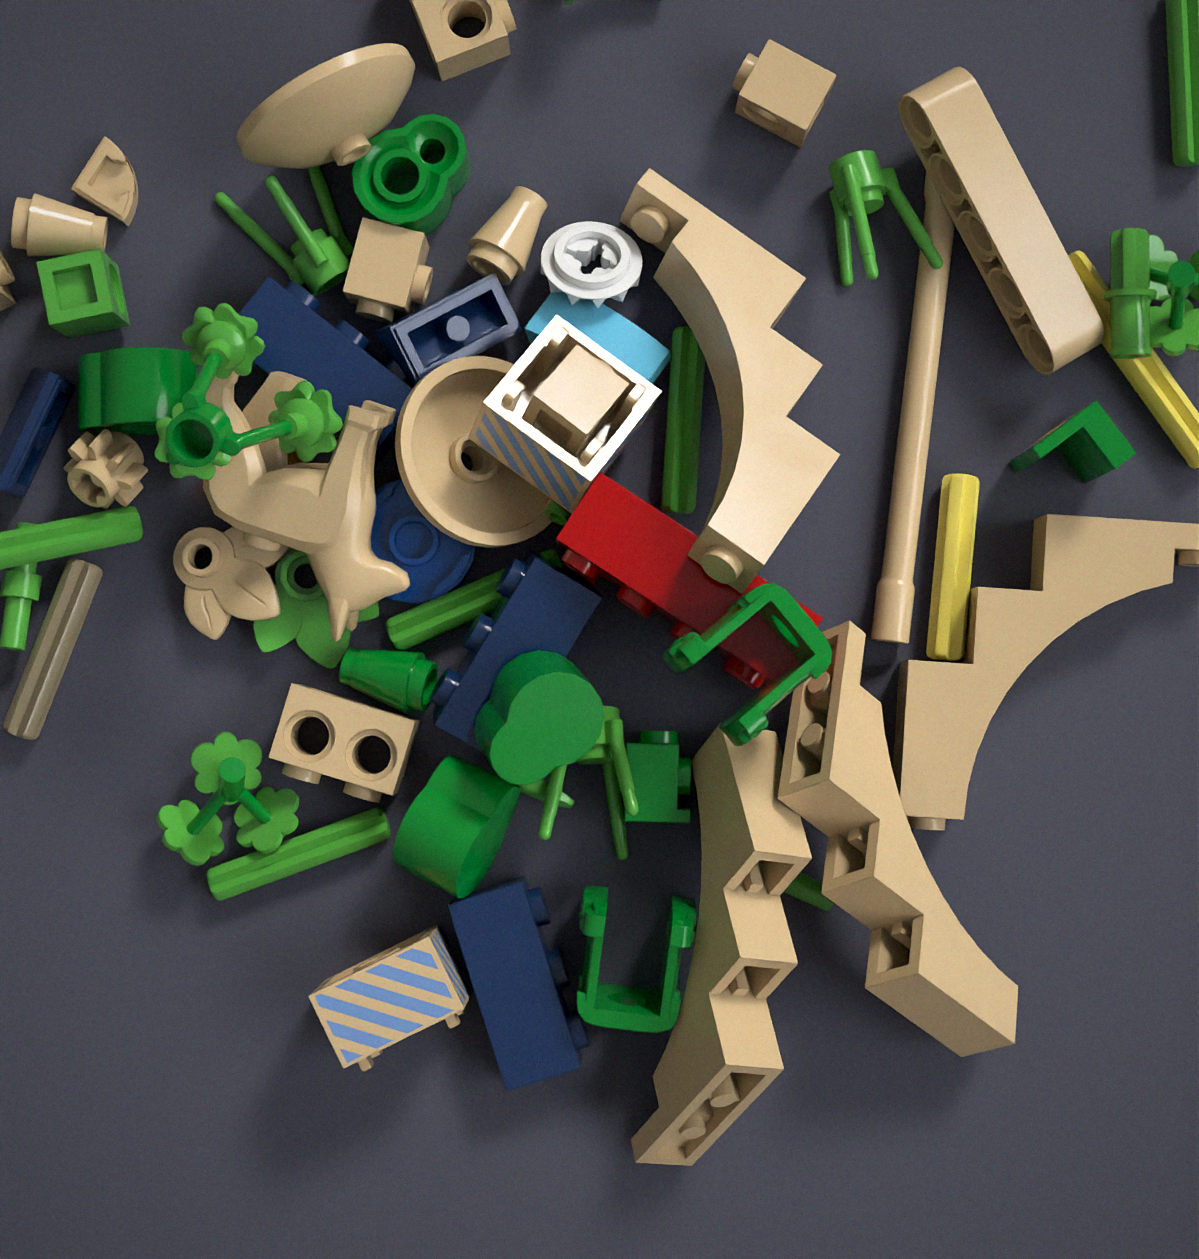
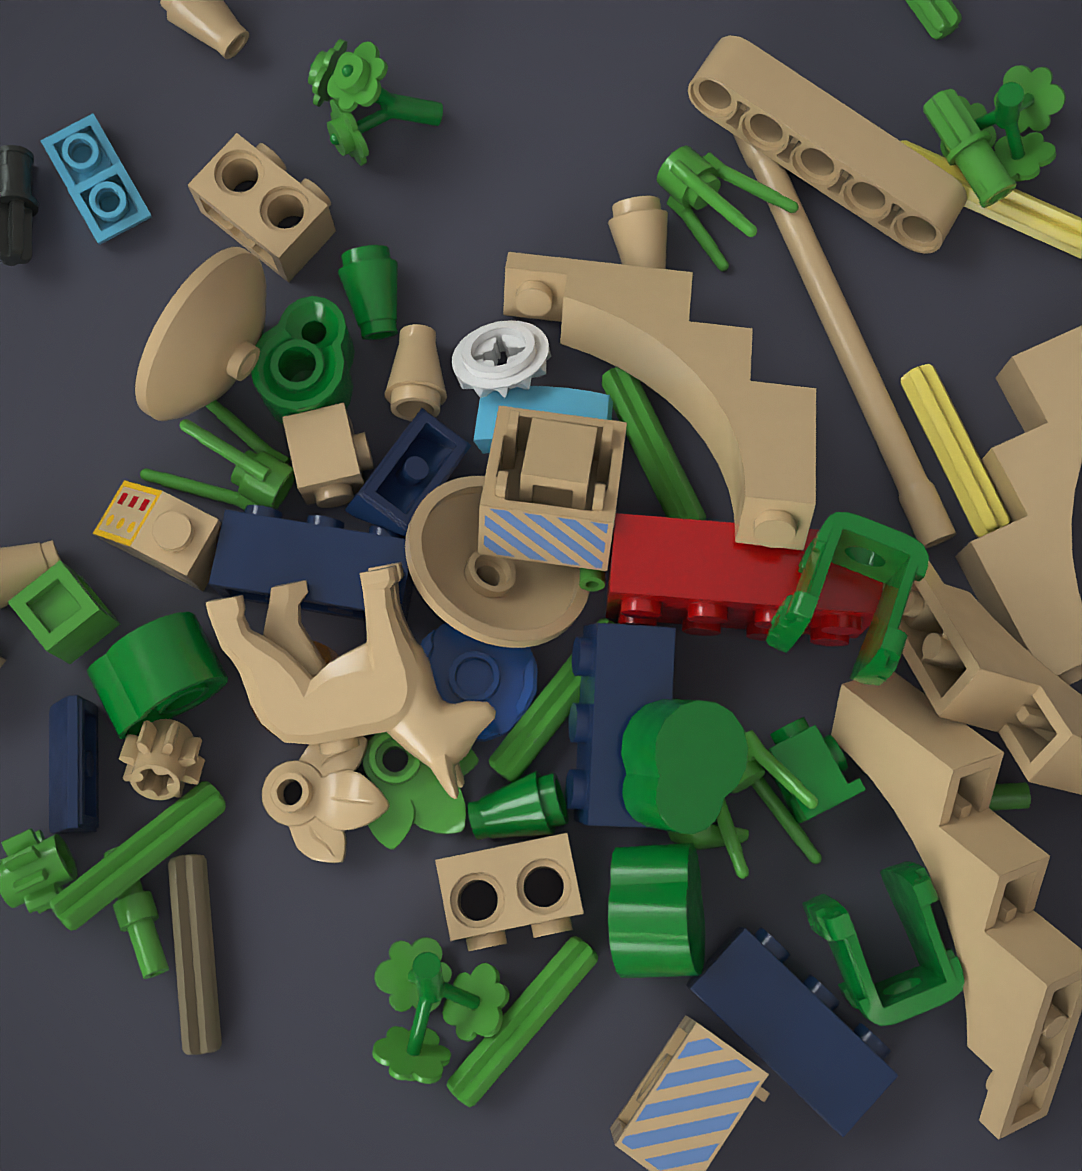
camera: 30 degrees left, 10 degrees down
(109, 182) = (39, 511): tan tile -> none
(202, 432) = (241, 648): bright green plant -> none
(203, 257) = (162, 532): none -> tan slope
(509, 134) = (371, 289): none -> green cone
(782, 91) = (584, 139): tan brick -> none
(783, 214) = (640, 231): none -> tan cone
(1086, 440) = (1007, 284): green panel -> none

